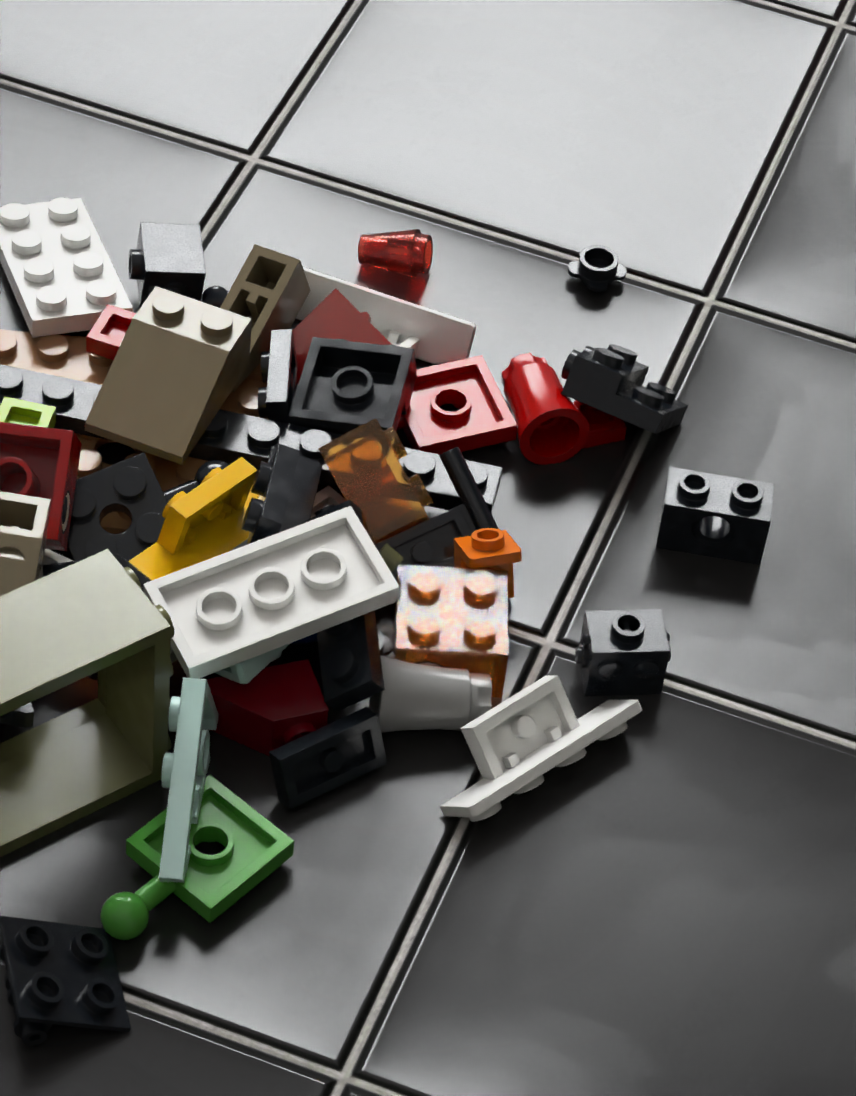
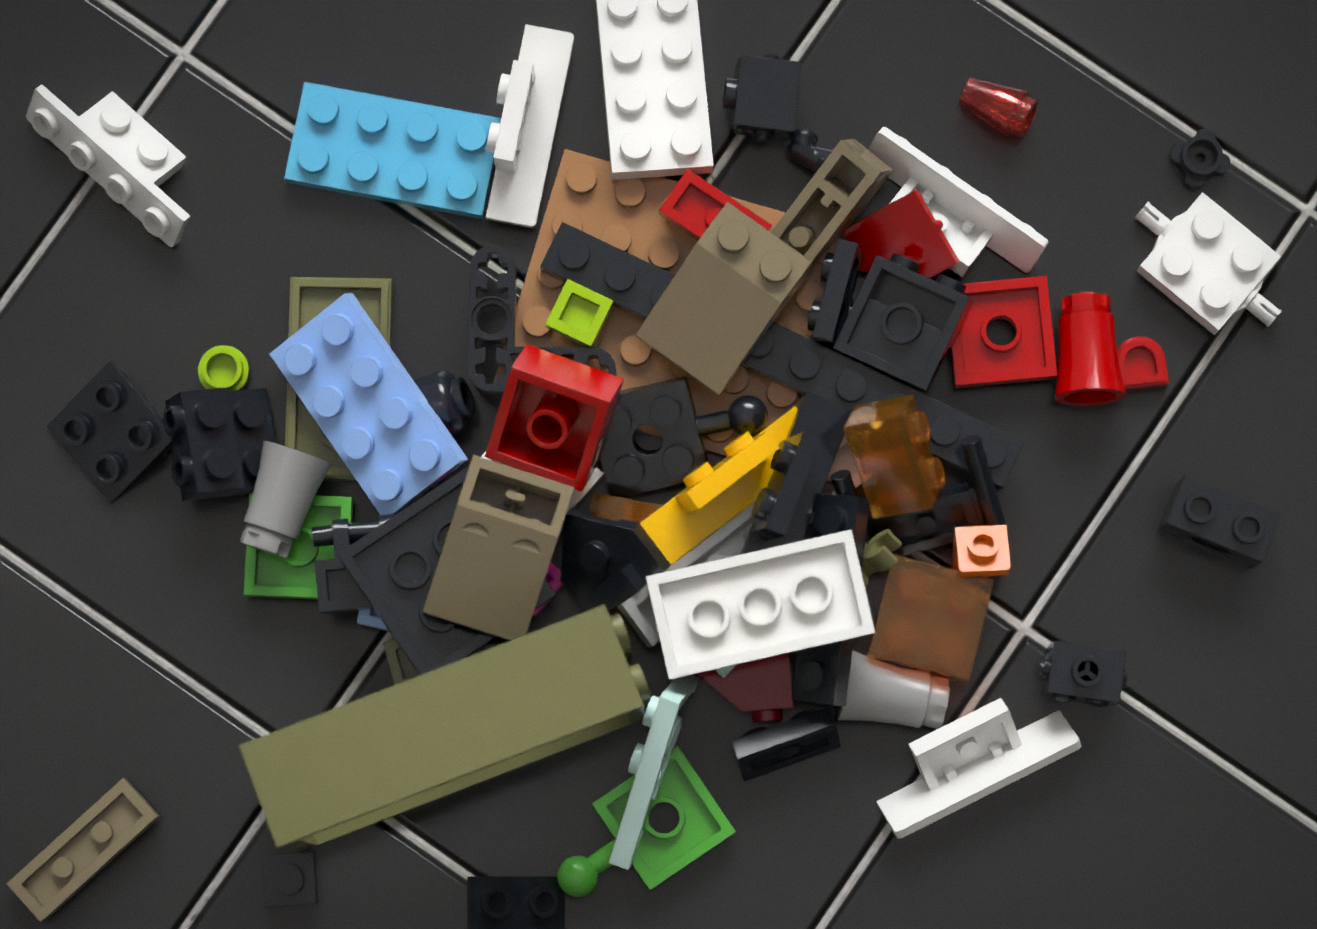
camera: 20 degrees right, 35 degrees up
(613, 384) = (1170, 355): black plate -> none
(654, 334) = (1208, 263): none -> white plate

